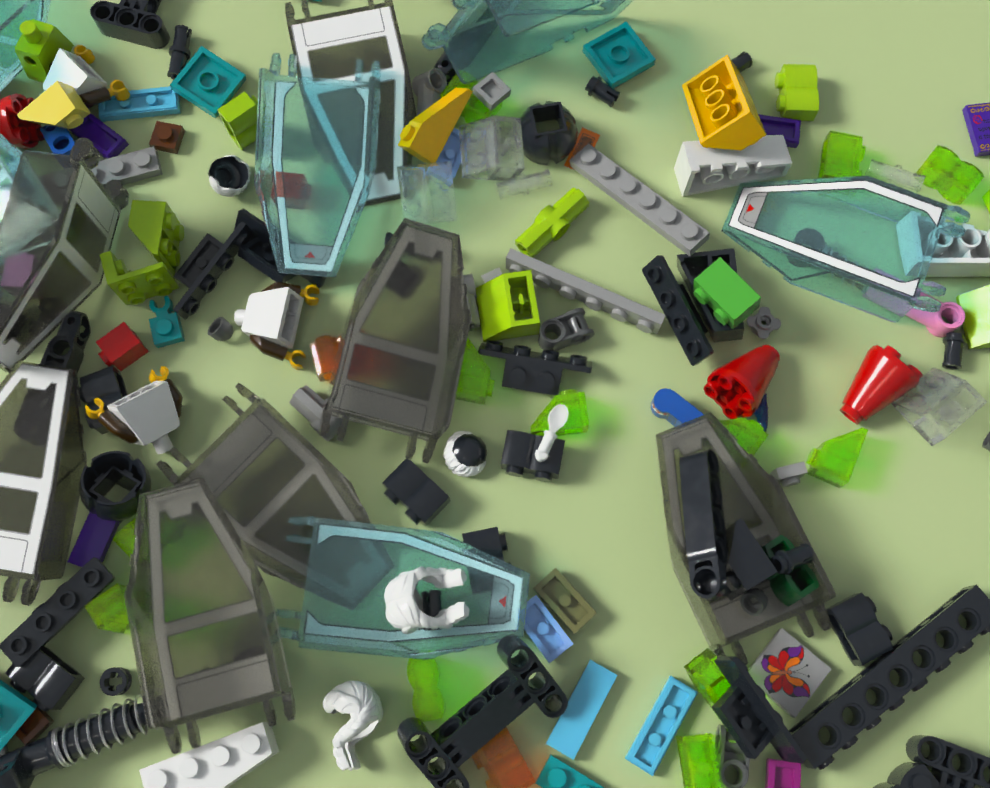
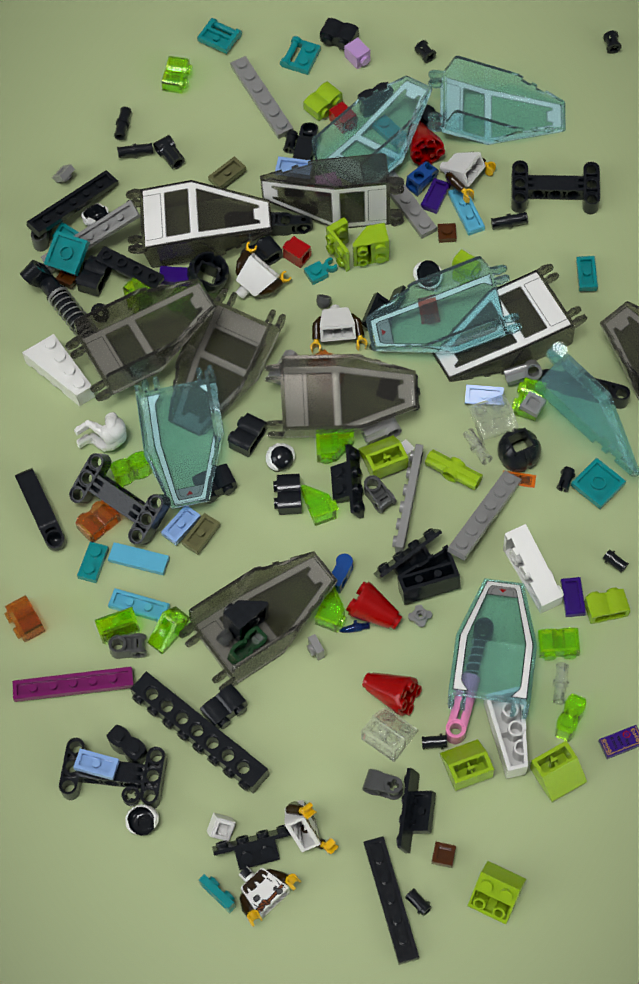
camera: 80 degrees right, 10 degrees down
(39, 47) = (483, 141): lime torso -> none
(56, 107) = (436, 165): light yellow slope -> none
(205, 267) = (360, 279): black bracket -> none
(208, 81) = (492, 242): teal plate -> none
(405, 603) = (175, 441): white hair -> none
(428, 192) = (449, 390): clear slope -> none
(430, 130) = (490, 374): yellow slope -> none
(431, 604) = (175, 456): black pin -> none
(557, 418) = (311, 496): white piece -> none
(704, 524) = (289, 584): black piece -> none
(723, 107) = (567, 550): yellow slope -> none
(725, 293) = (421, 572): bright green brick -> none
(751, 716) = (149, 638): black bracket -> none
(788, 560) = (251, 639): black pin -> none
(788, 672) = (187, 672): tile -> none
(836, 458) = (335, 676): clear neon green slope -> none

